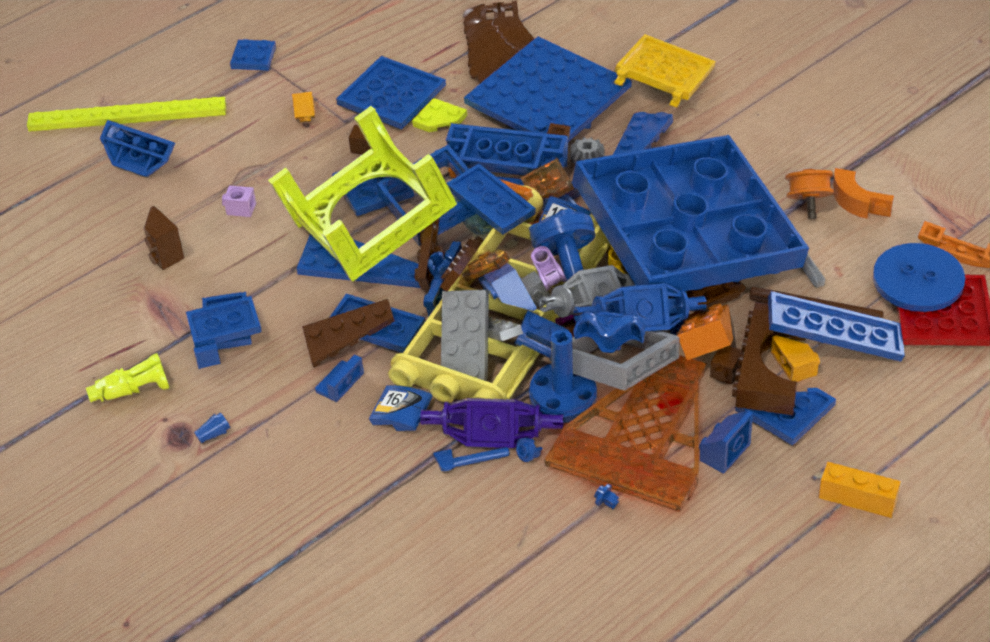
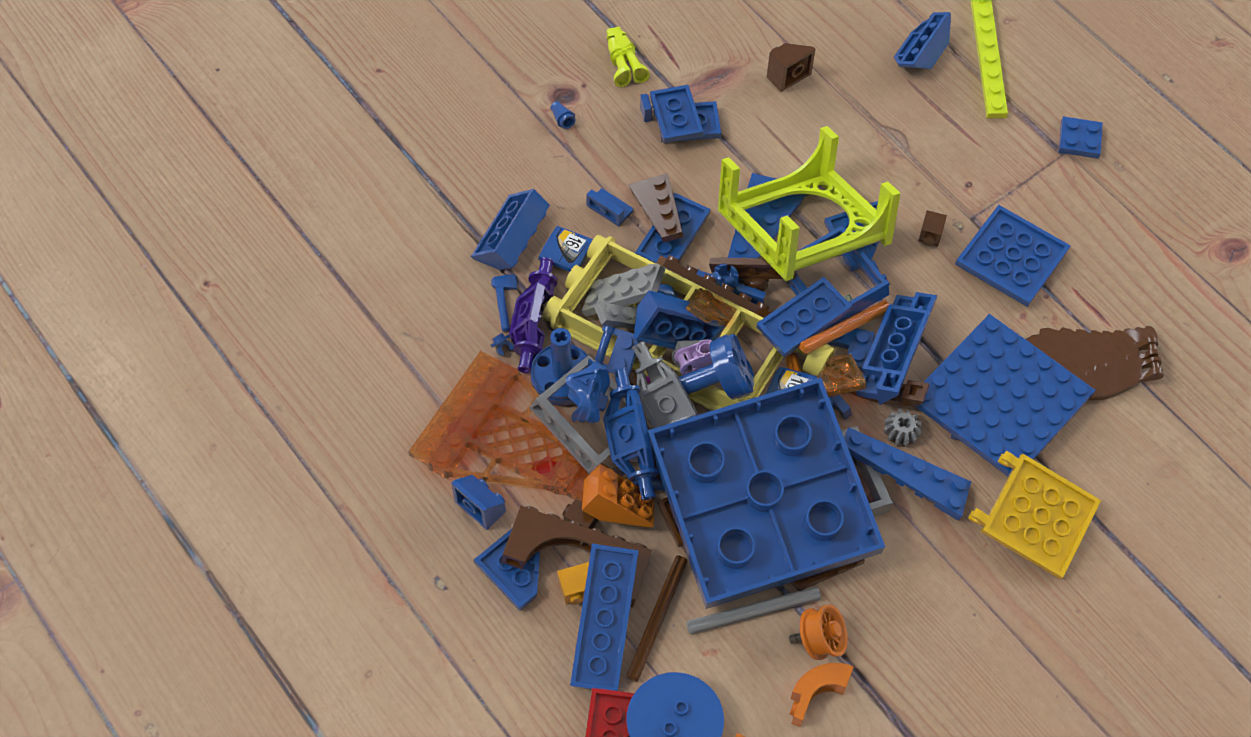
camera: 90 degrees right, 15 degrees up
(239, 201) = (847, 126): lavender brick -> none
(304, 106) = (988, 177): light orange slope -> none
(377, 457) = (511, 230): none -> blue slope
(437, 115) = (975, 298): neon yellow plate -> none
(605, 496) = (435, 398): blue plate -> none
(859, 489) = (404, 607): light orange brick -> none

